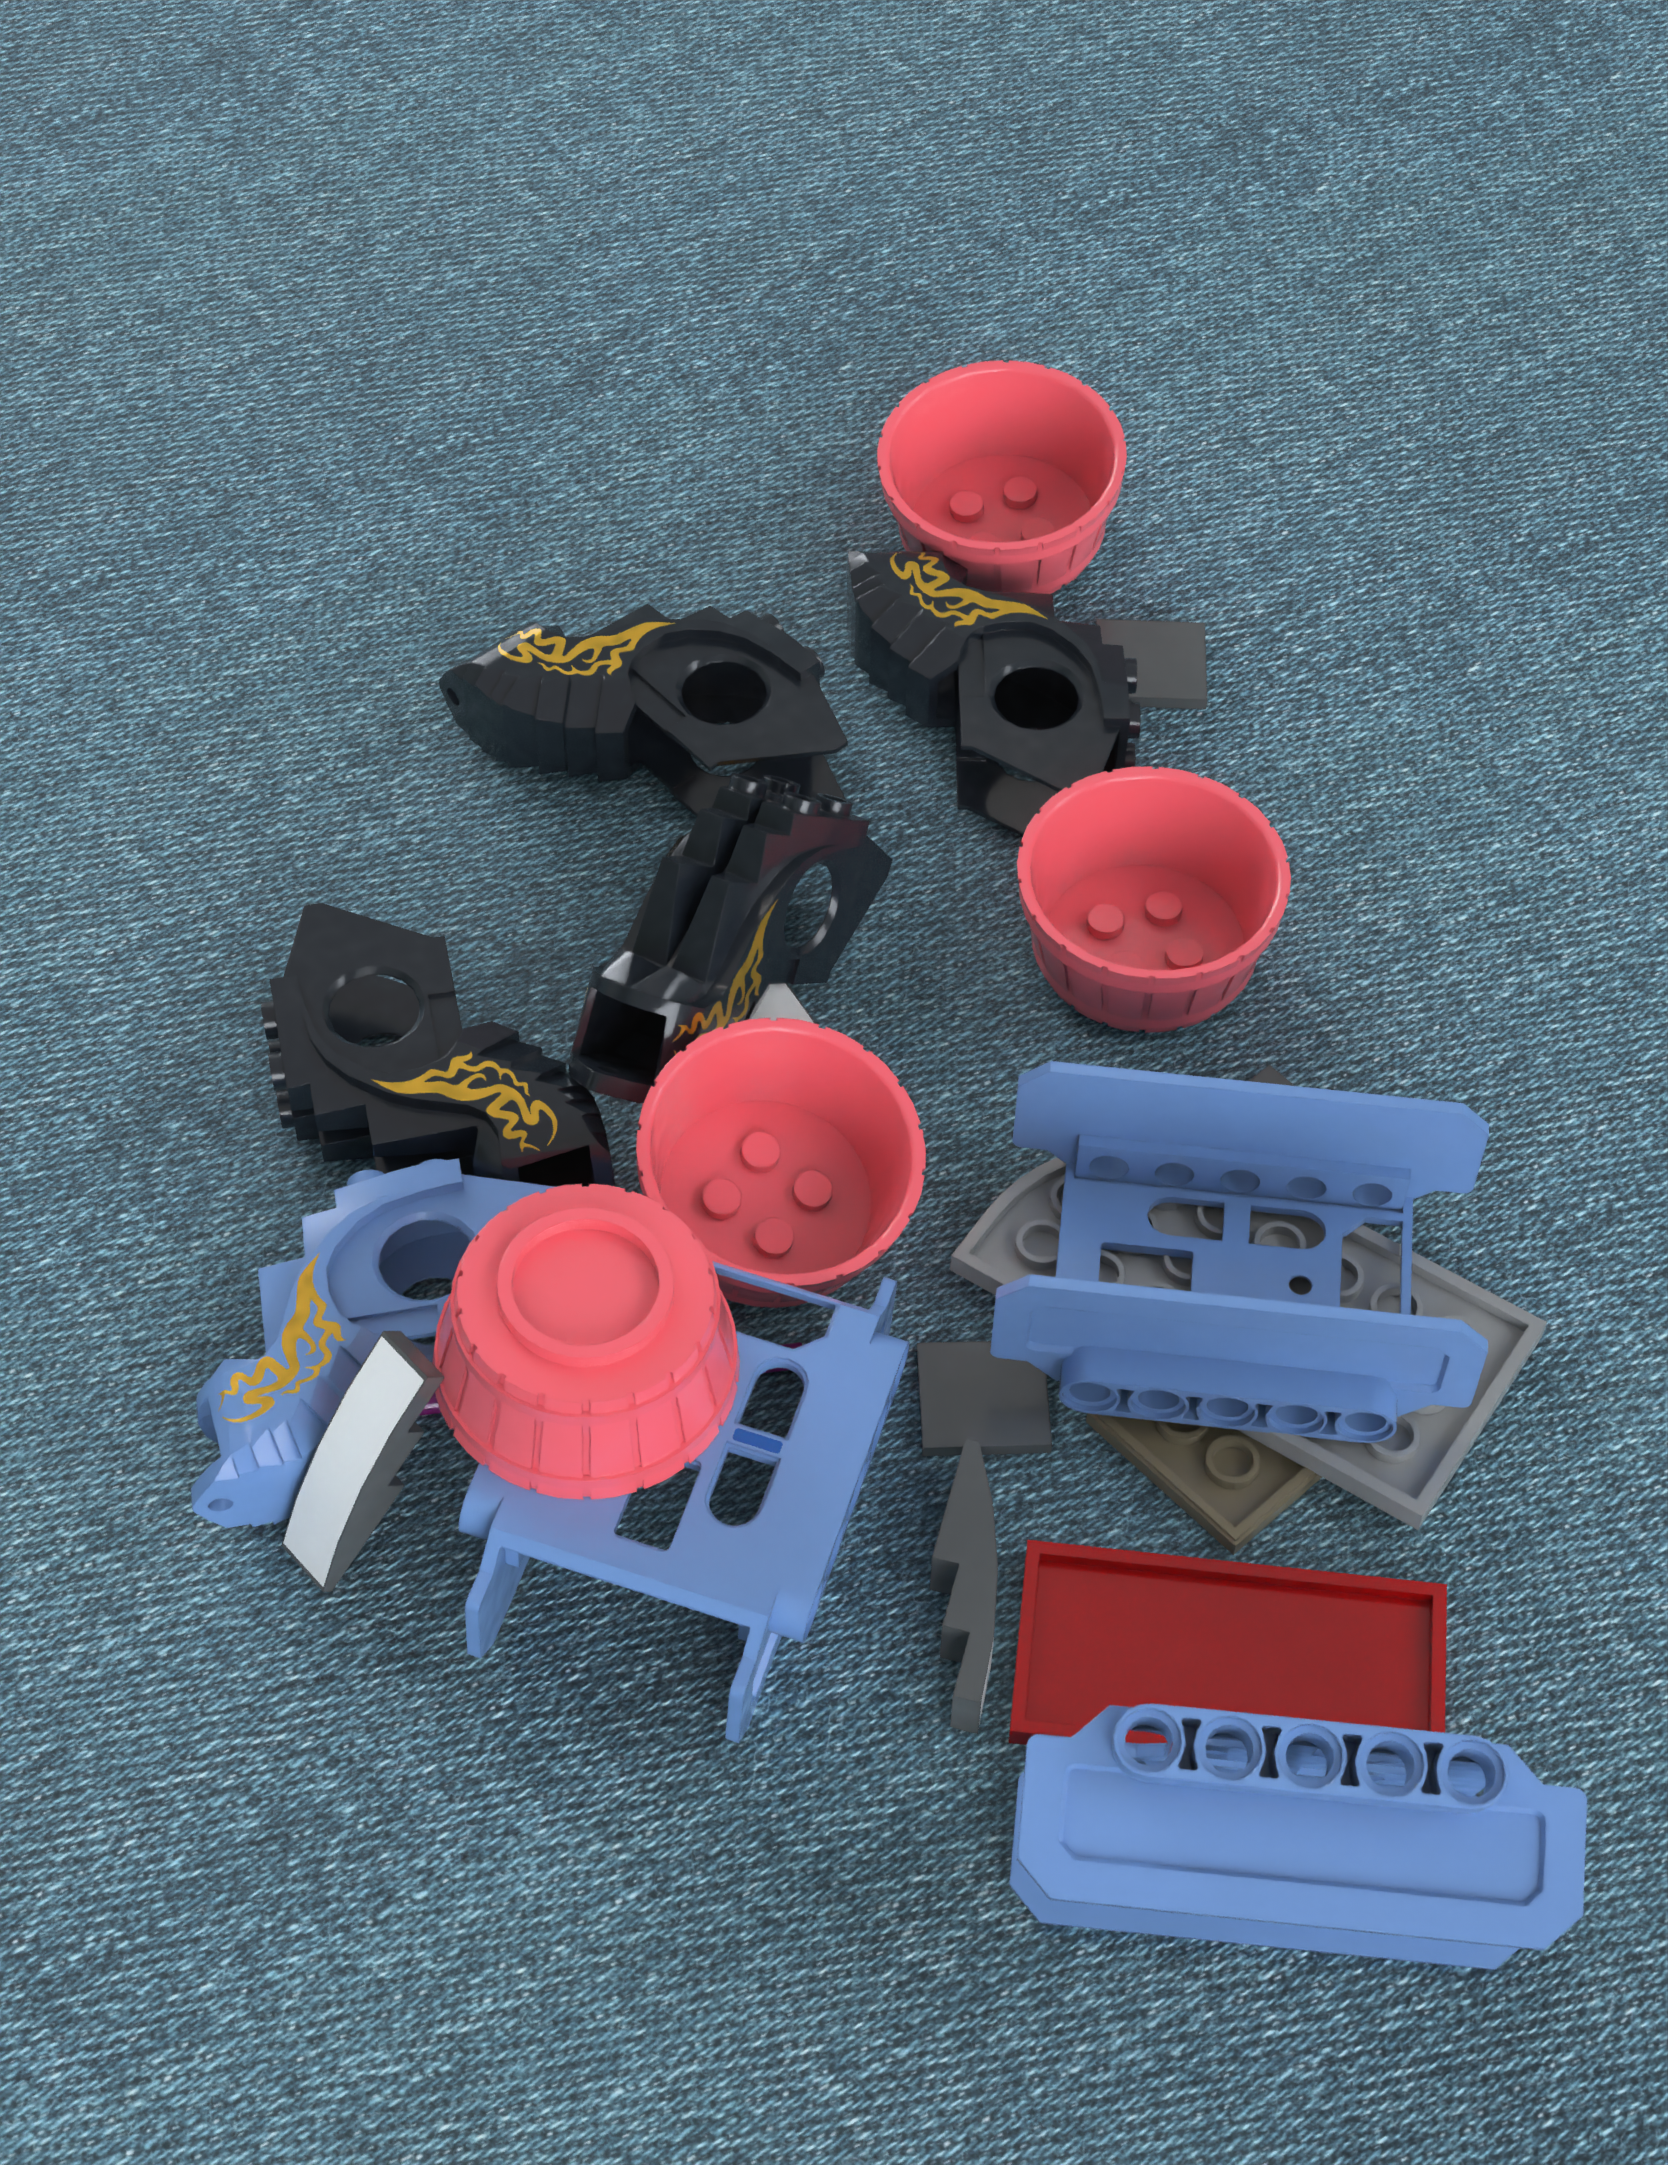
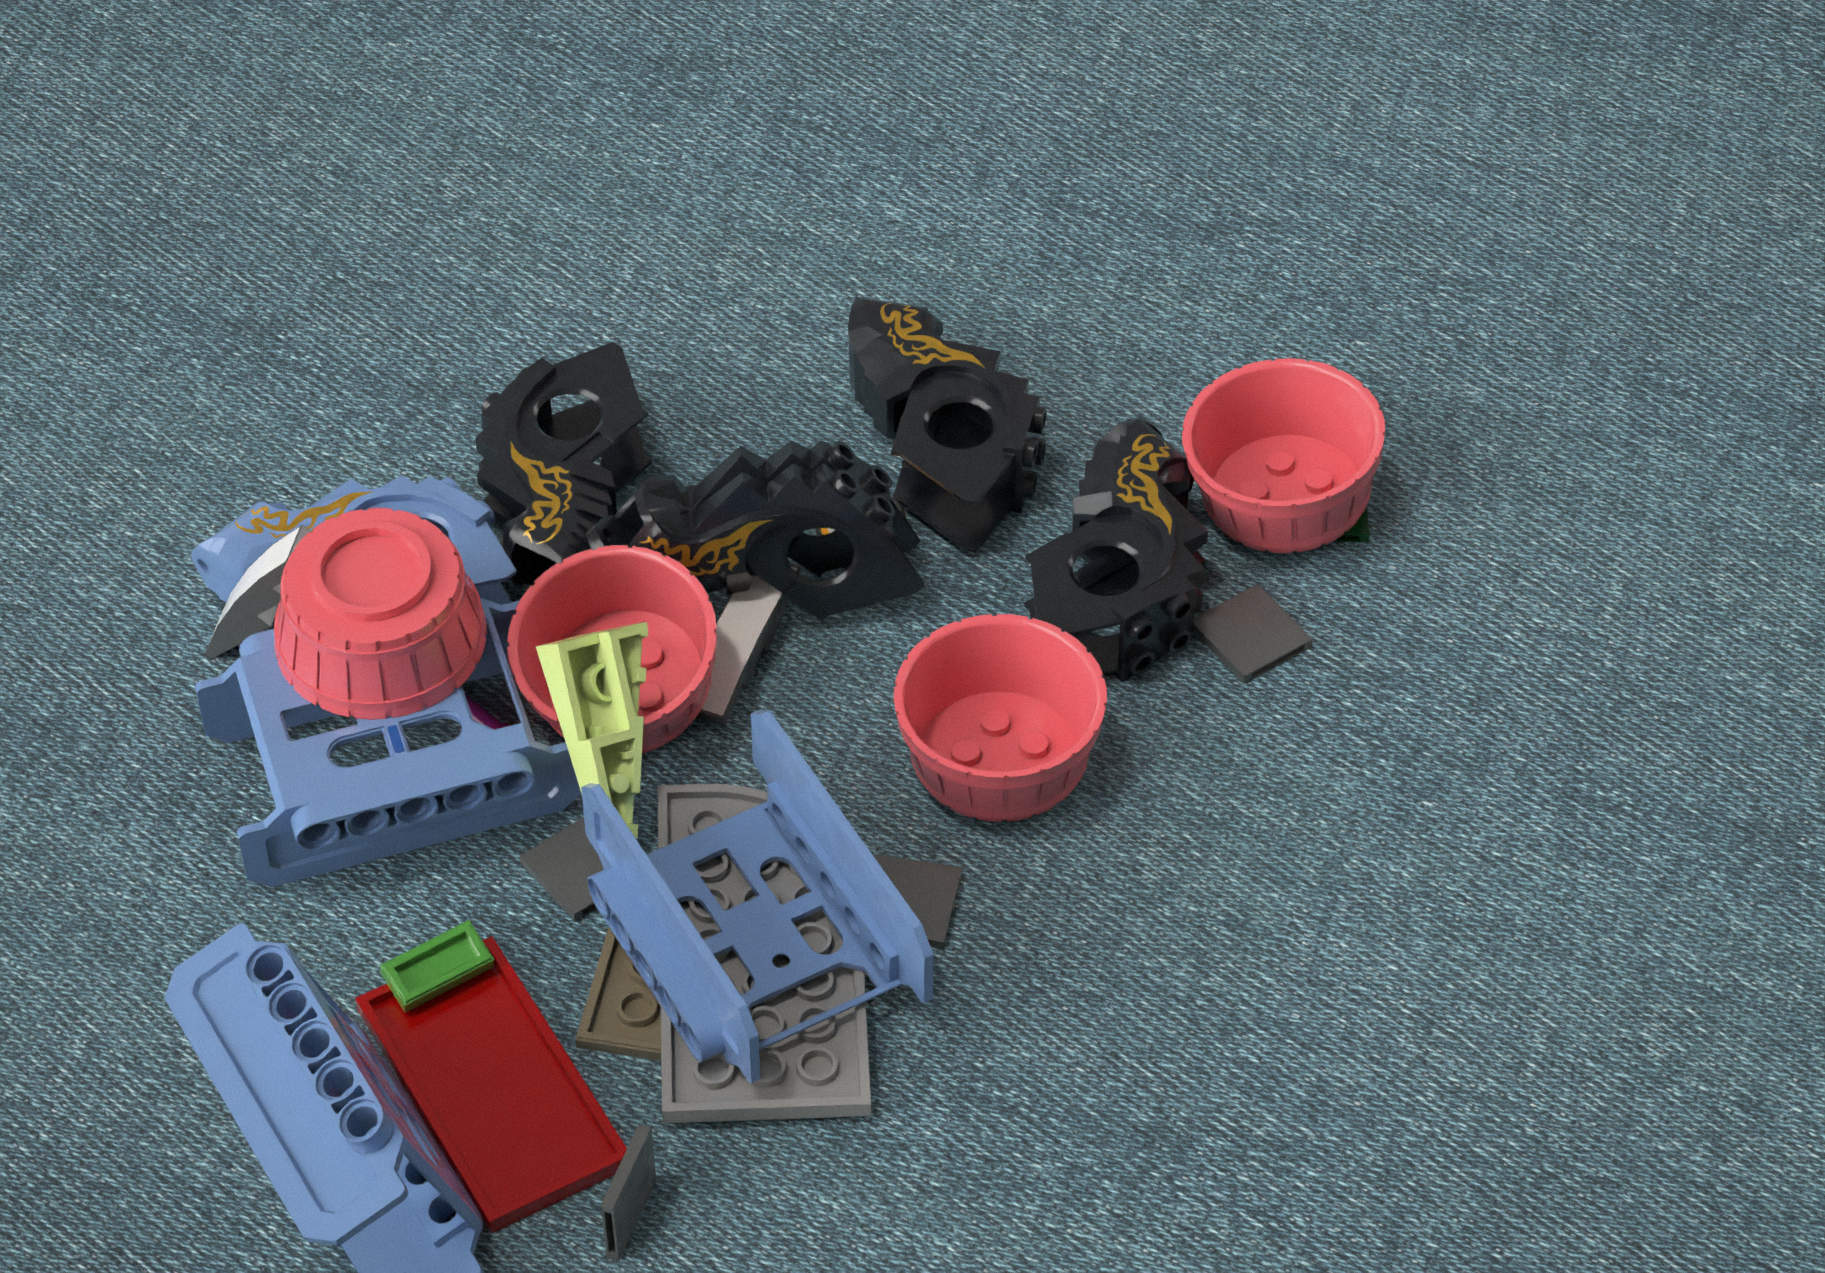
camera: 55 degrees right, 5 degrees down
(869, 1216) = (596, 700): none -> yellowish green wedge
(967, 1570) = (474, 897): dark grey slope -> none
(1037, 1618) = (437, 966): none -> bright green tile
(1527, 1610) = (628, 1192): none -> dark grey piece

